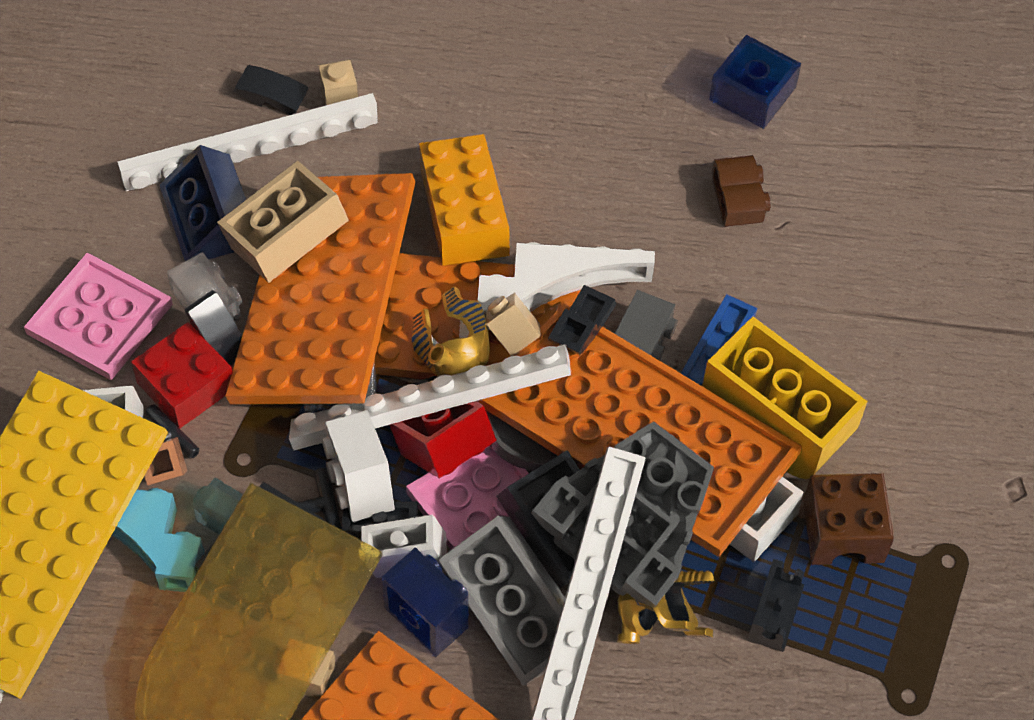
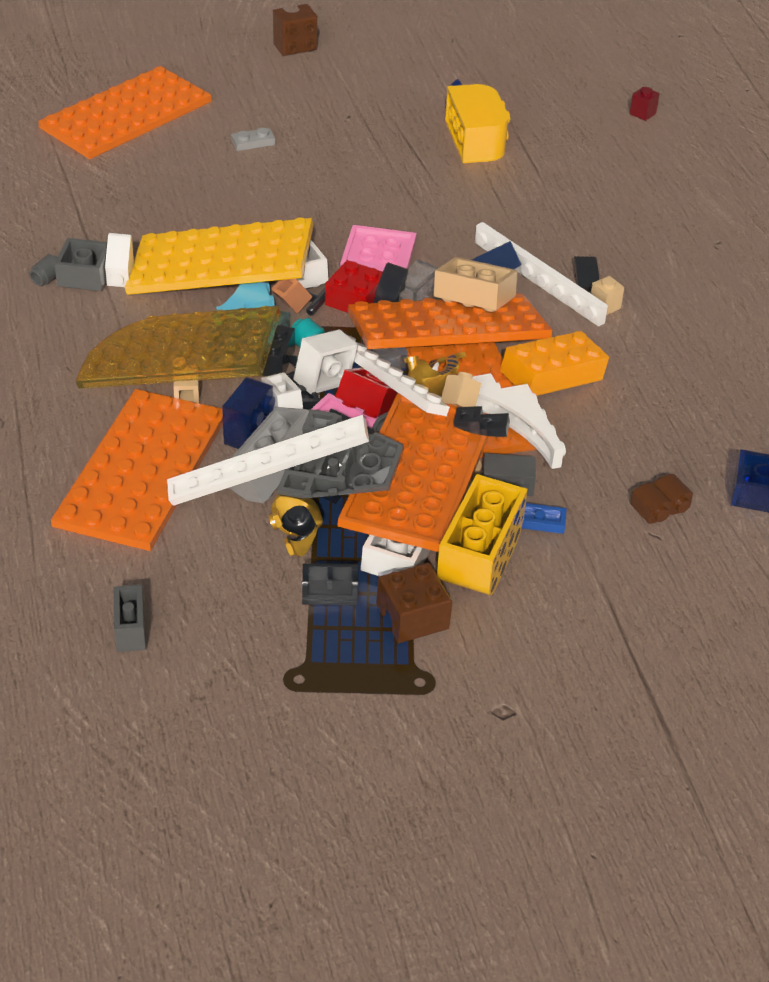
camera: 70 degrees right, 15 degrees down
(261, 466) = (306, 328): none -> teal head

